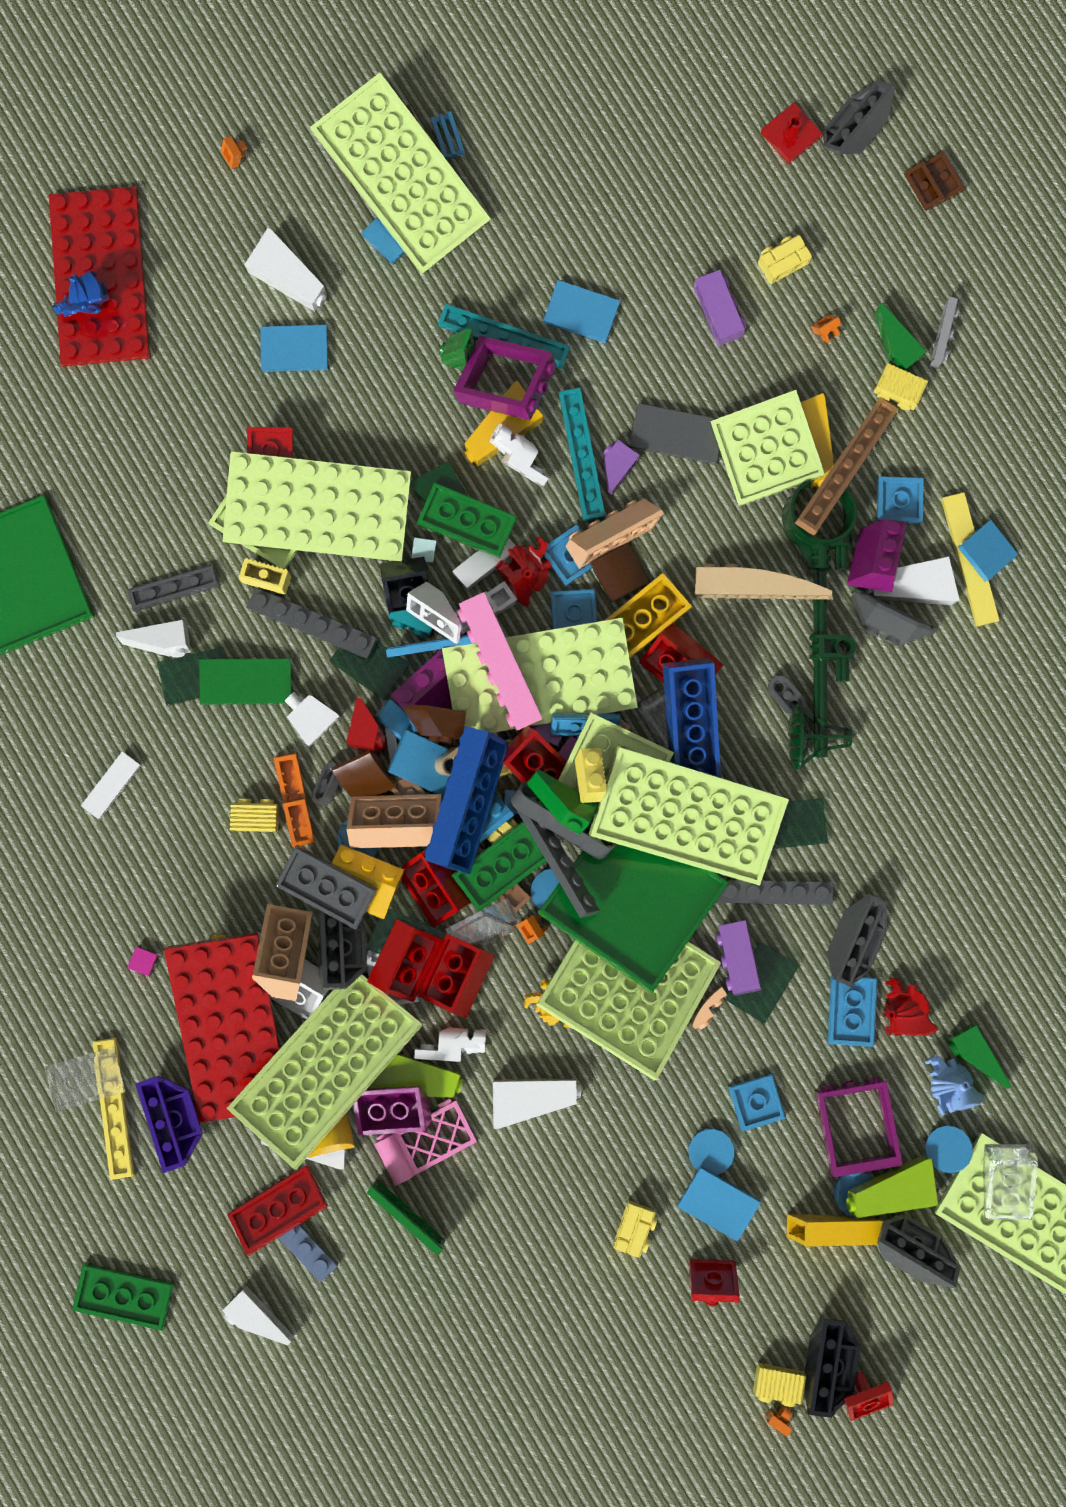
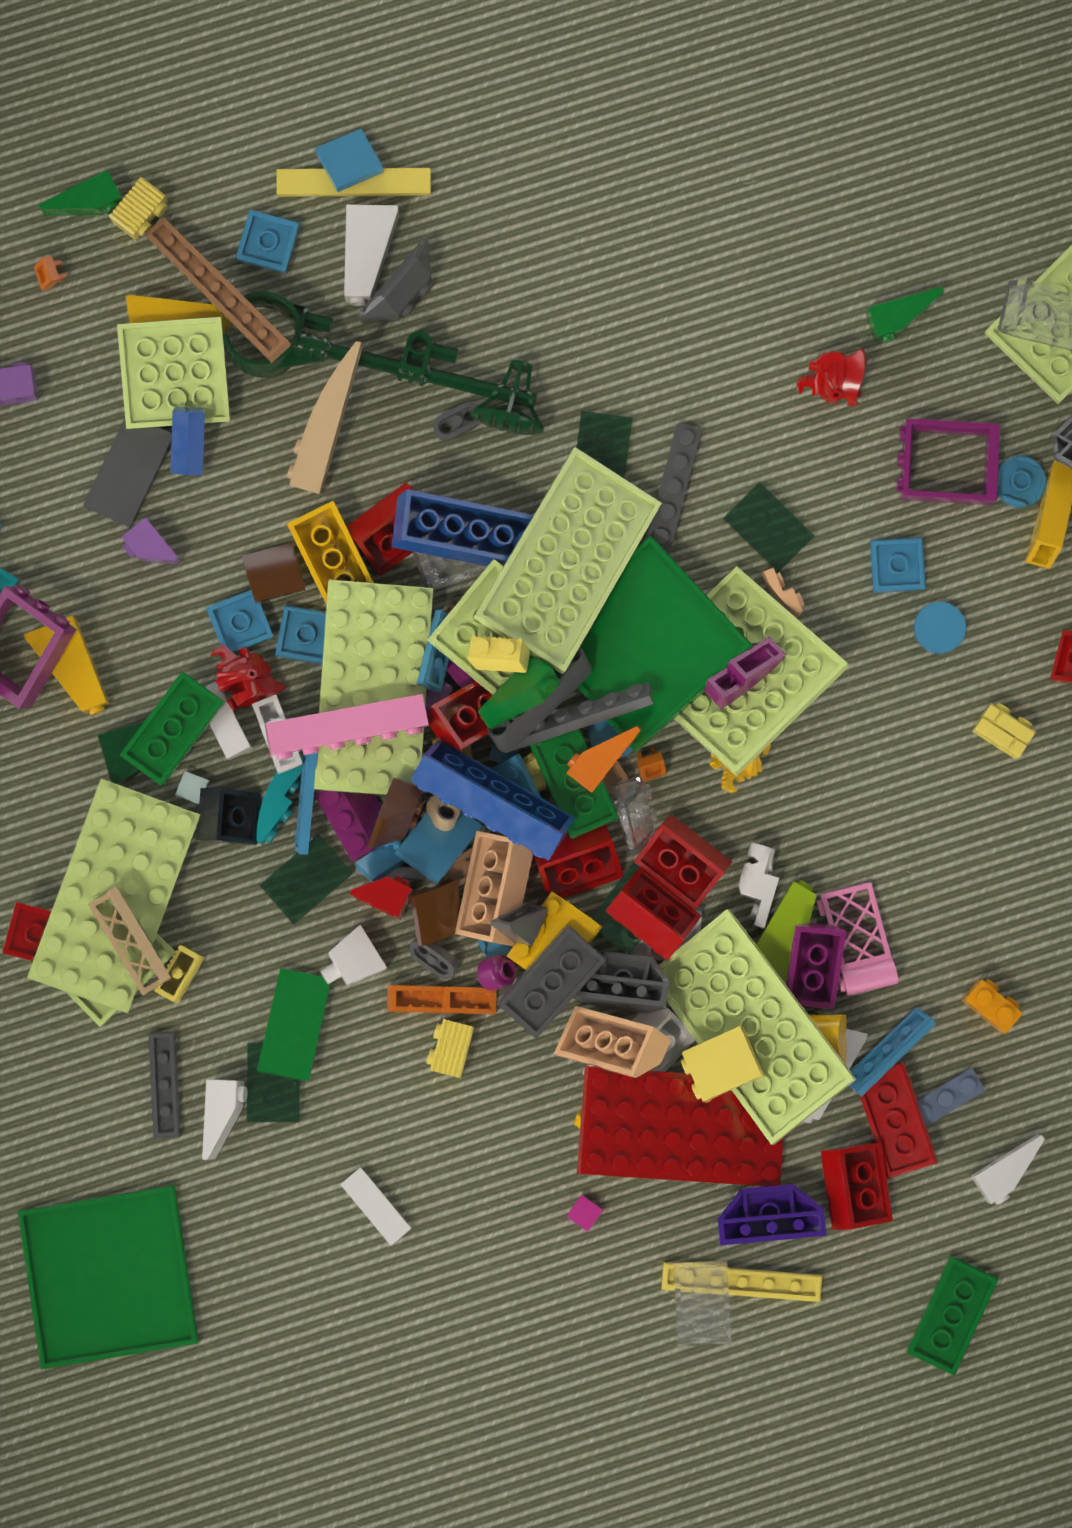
camera: 80 degrees left, 0 degrees up
(213, 1189) = (856, 1186): none -> red slope
(284, 1050) = (721, 1064): none -> light yellow panel
(286, 531) = (138, 935): none -> tan fence
(312, 623) = (245, 934): dark grey plate -> none
(325, 839) = (496, 972): none -> magenta head
(335, 1192) = (890, 1050): none -> dark azure tile
(369, 850) = (522, 923): none -> dark grey slope
(392, 1273) = (992, 1006): none -> light orange brick
(406, 1217) = (935, 976): green tile -> none
(434, 609) = (269, 786): white slope -> none
(519, 453) = (109, 652): white plate -> none
(521, 881) = (596, 762): none -> orange slope
(527, 1098) = (837, 812): white slope -> none
(581, 454) = (126, 583): teal plate -> none
(613, 532) = (226, 568): light nougat slope -> none
(627, 990) = (744, 672): none -> magenta slope
(712, 473) = (187, 441): none -> blue piece
(718, 1203) = (997, 633): dark azure tile -> none
(738, 958) = (736, 545): medium lavender brick -> none
(852, 1012) = (821, 437): dark azure tile -> none
(857, 940) = (746, 411): dark grey wedge -> none
(877, 555) = (326, 282): magenta slope -> none
(896, 1190) = (1025, 435): lime slope -> none
(944, 332) = (89, 143): light grey plate -> none
(949, 1149) = (995, 370): dark azure tile -> none
(953, 1086) = (927, 349): light blue helmet -> none

